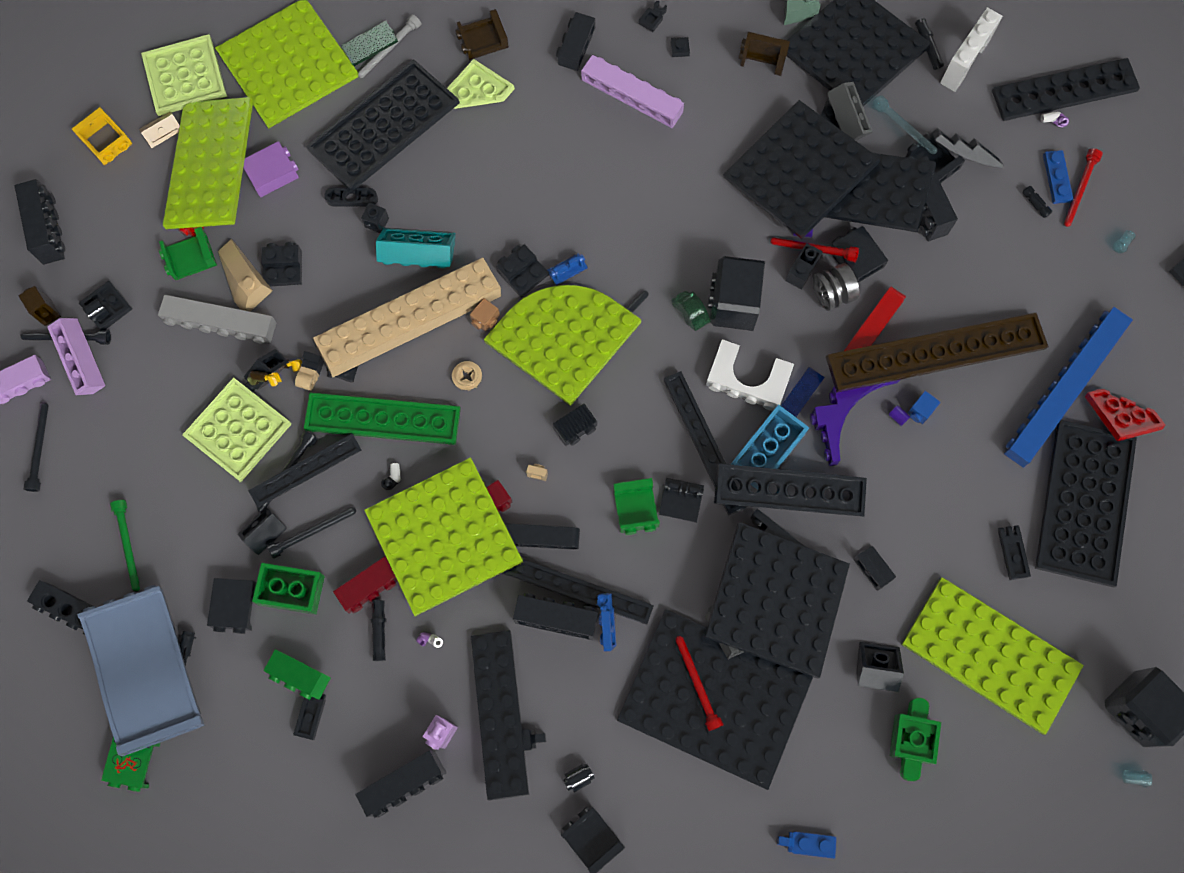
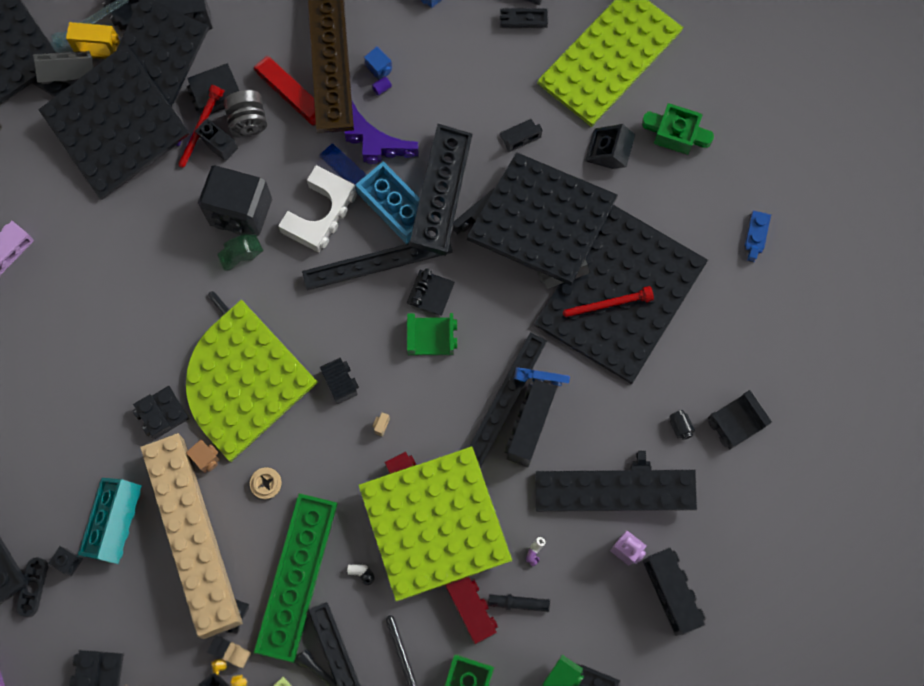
camera: 85 degrees left, 0 degrees up
(544, 536) = (447, 424): black beam -> none
(567, 268) = (168, 365): blue hinge -> none
(884, 130) = (97, 39): none -> yellow window

